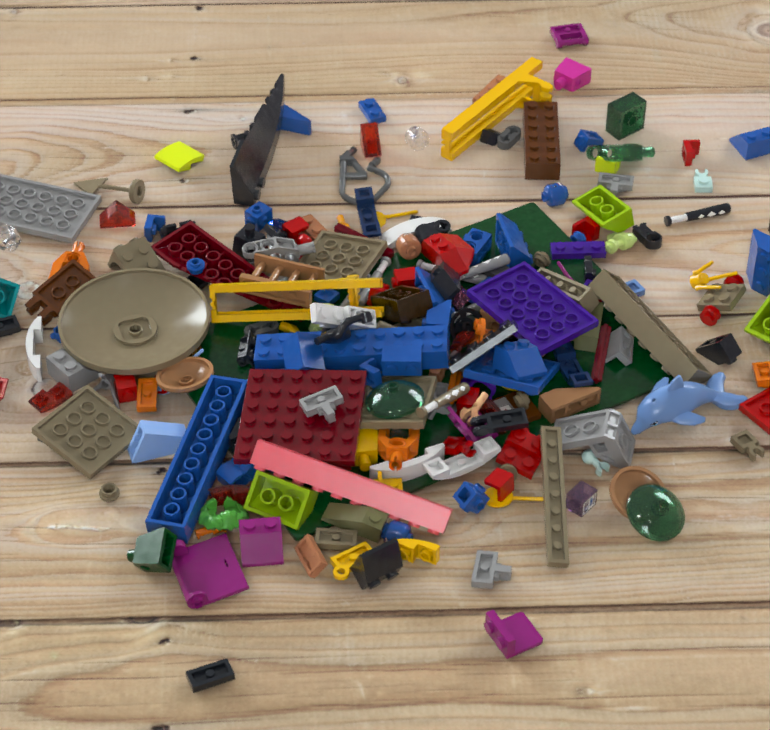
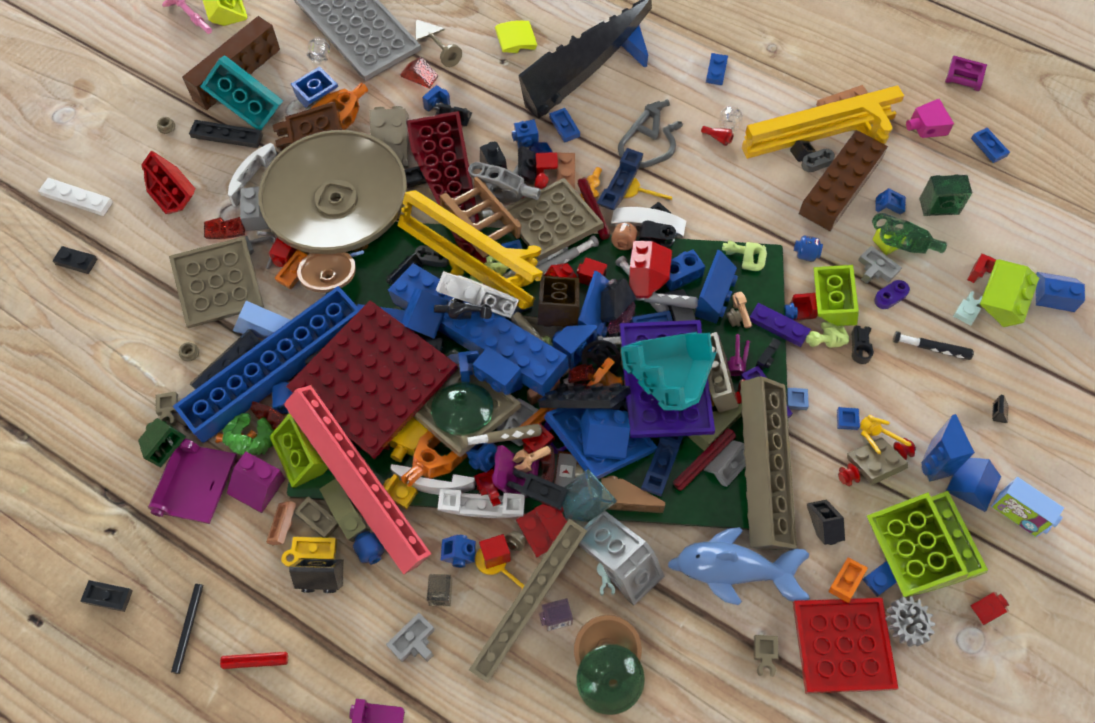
camera: 35 degrees right, 20 degrees up
(37, 262) = (313, 86): none -> blue slope
(127, 533) = (165, 407): none -> dark tan plate
(154, 476) = (235, 351): none -> black plate
(195, 266) = (423, 165): blue plate -> none
(283, 199) = (564, 125): none -> blue plate
(299, 661) = (187, 628): none -> black bar
(322, 403) = (386, 380): light grey hinge -> none
(370, 140) = (686, 101): clear red slope -> none
(375, 649) = (254, 660): none -> red axle
(413, 548) = (363, 571): yellow slope -> none
(419, 152) = (720, 134): none -> red cone
(435, 428) = (482, 456): none -> blue brick
(482, 529) = (439, 590): none -> clear smoke panel
(514, 214) = (748, 251): none -> yellowish green piece
(535, 290) = (671, 367): none -> teal panel
(537, 245) = (739, 302): none -> light nougat bar
(541, 407) = (586, 498): none -> clear light blue slope
(628, 74) = (990, 145): none -> blue plate
(640, 197) = (893, 294): none -> dark purple plate
(678, 284) = (848, 418): none -> blue plate
(723, 155) = (1009, 292): none -> lime slope

